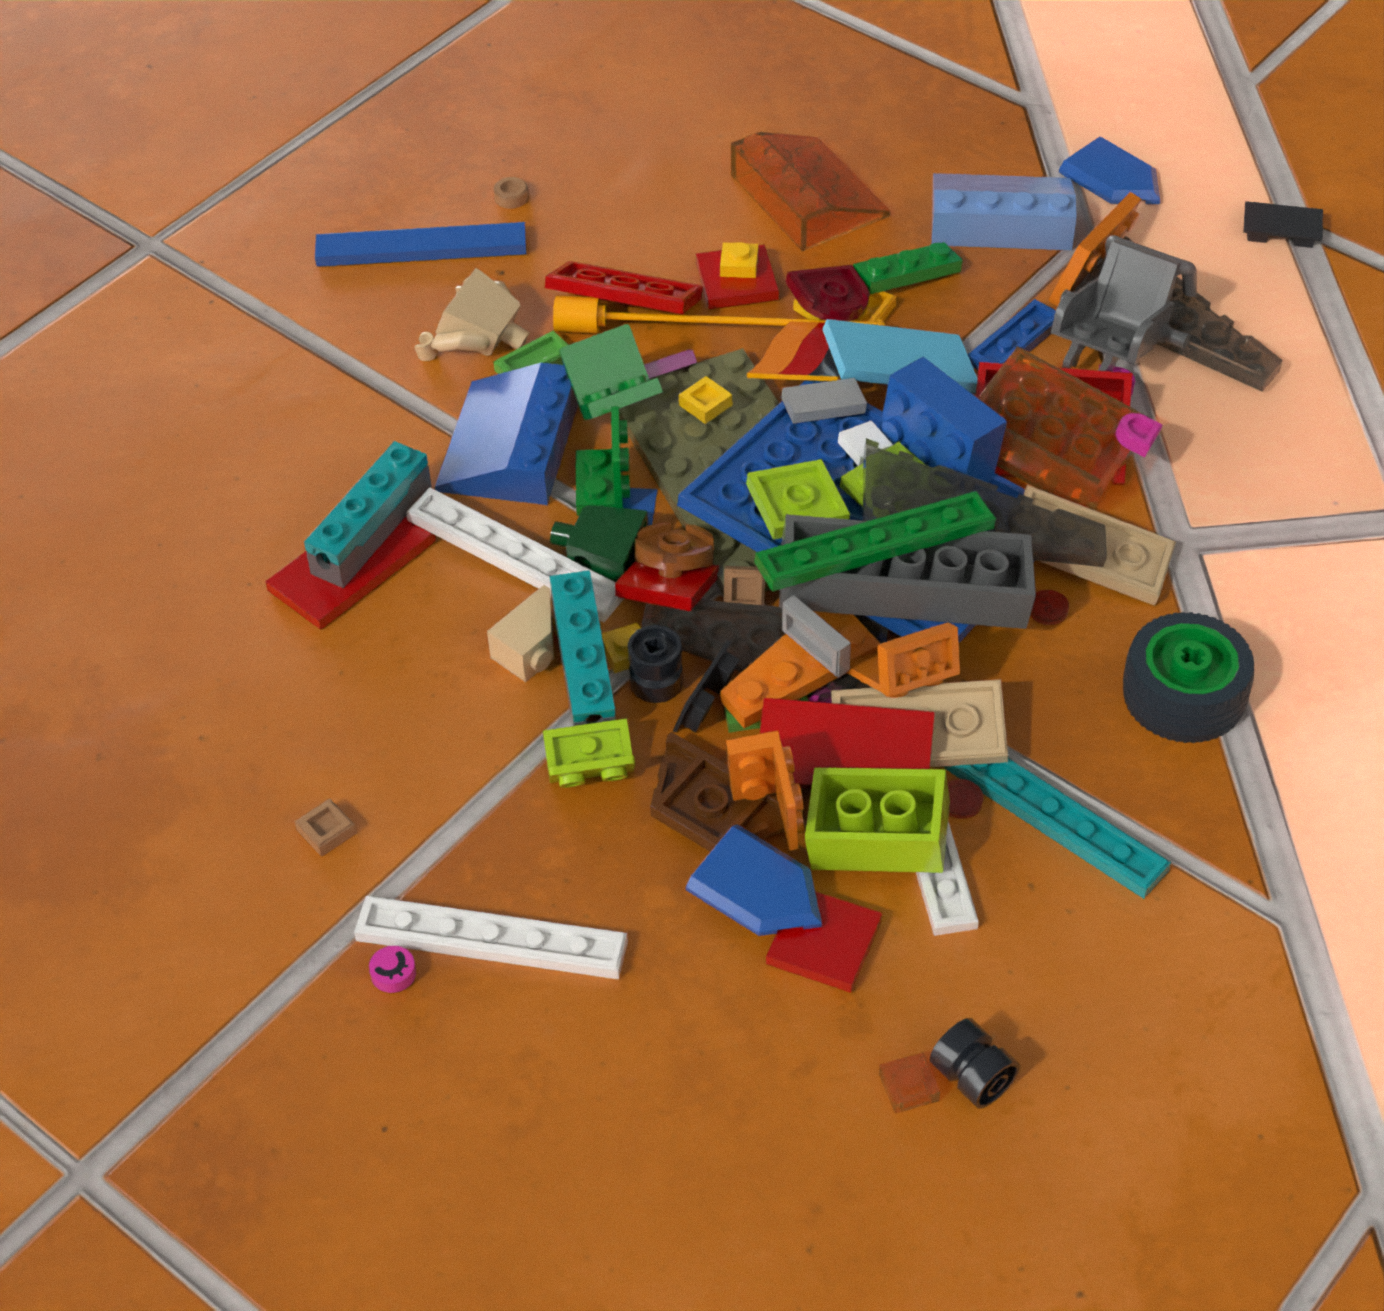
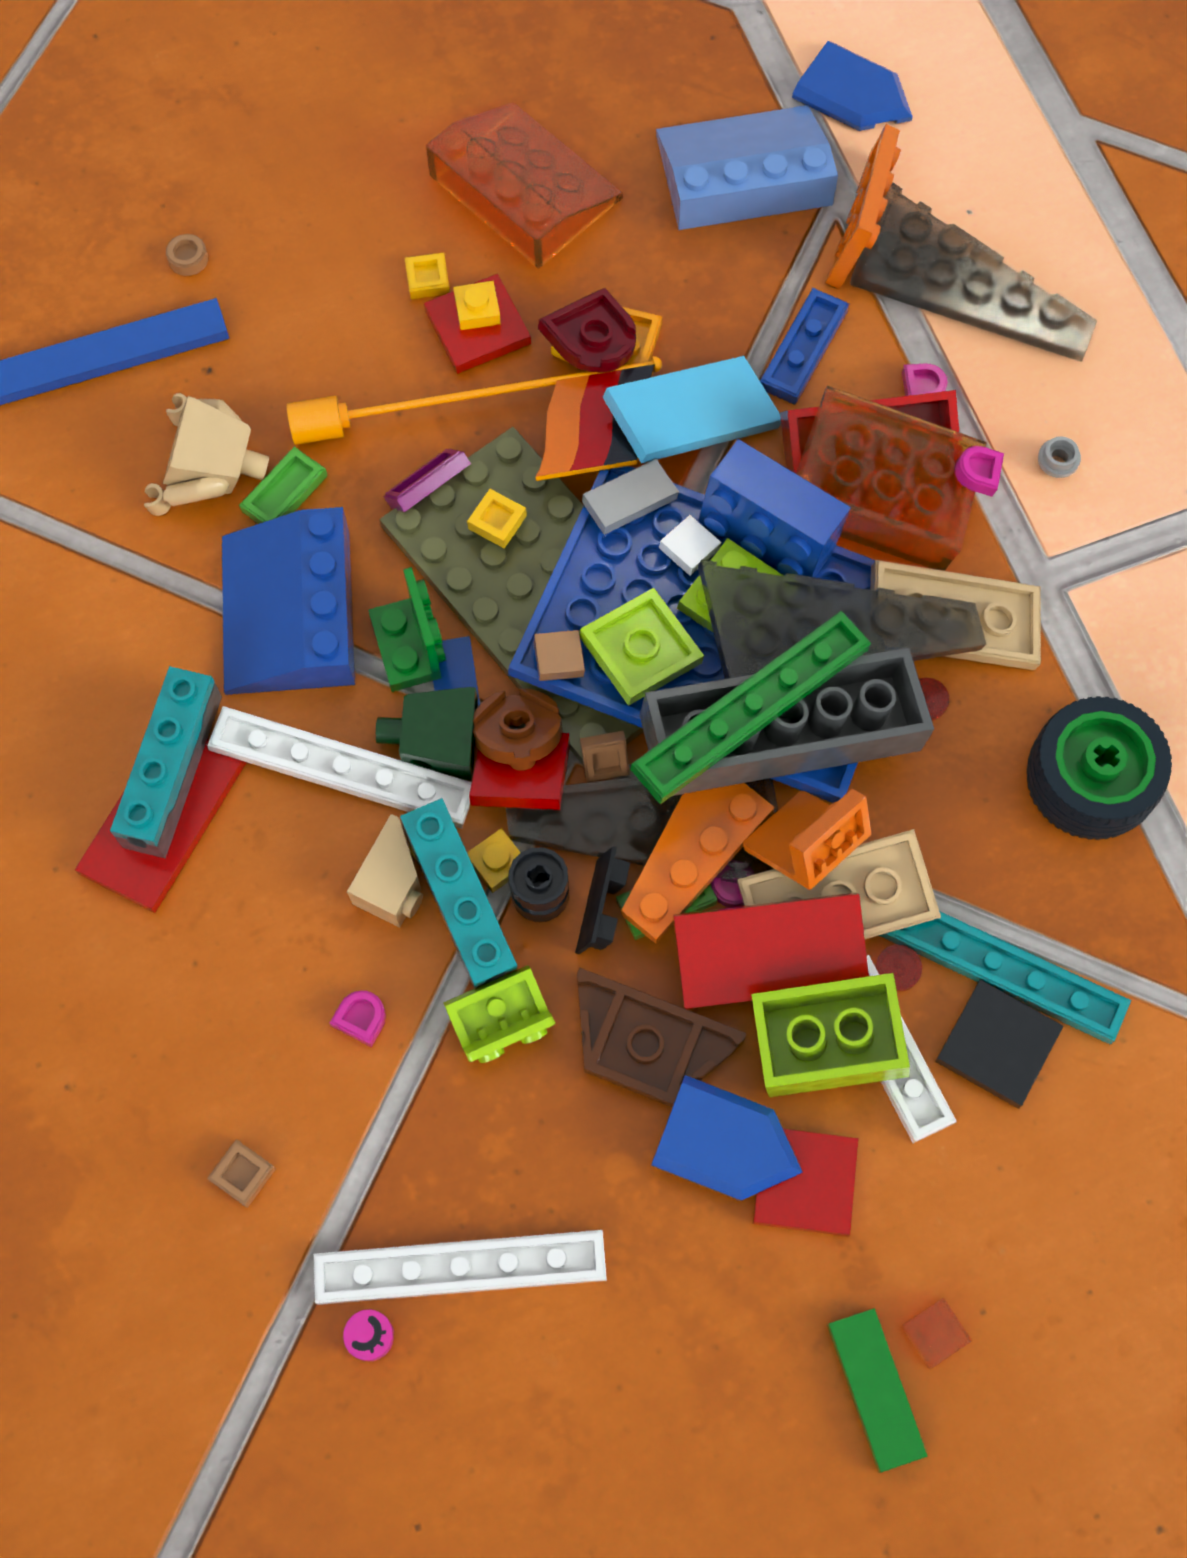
camera: 15 degrees left, 20 degrees up
(468, 736) = (360, 1016): none -> dark pink tile
(607, 372) = (383, 515): green bracket -> none
(624, 287) = (358, 372): red tile -> none
(704, 237) = (427, 275): none -> yellow tile
(724, 492) = (559, 655): none -> medium nougat tile
(764, 767) = (692, 1019): orange bracket -> none
(816, 636) = (710, 828): light grey tile -> none
(839, 1115) = (877, 1390): none -> green tile
(908, 267) = (665, 273): green plate -> none
(981, 1069) = (1005, 1306): black wheel -> none
(1037, 872) = (999, 1044): none -> black tile
(1125, 306) = (920, 293): dark grey piece -> none
(1221, 452) = (1063, 448): none -> light grey plate
(1294, 222) = (1053, 124): black piece -> none

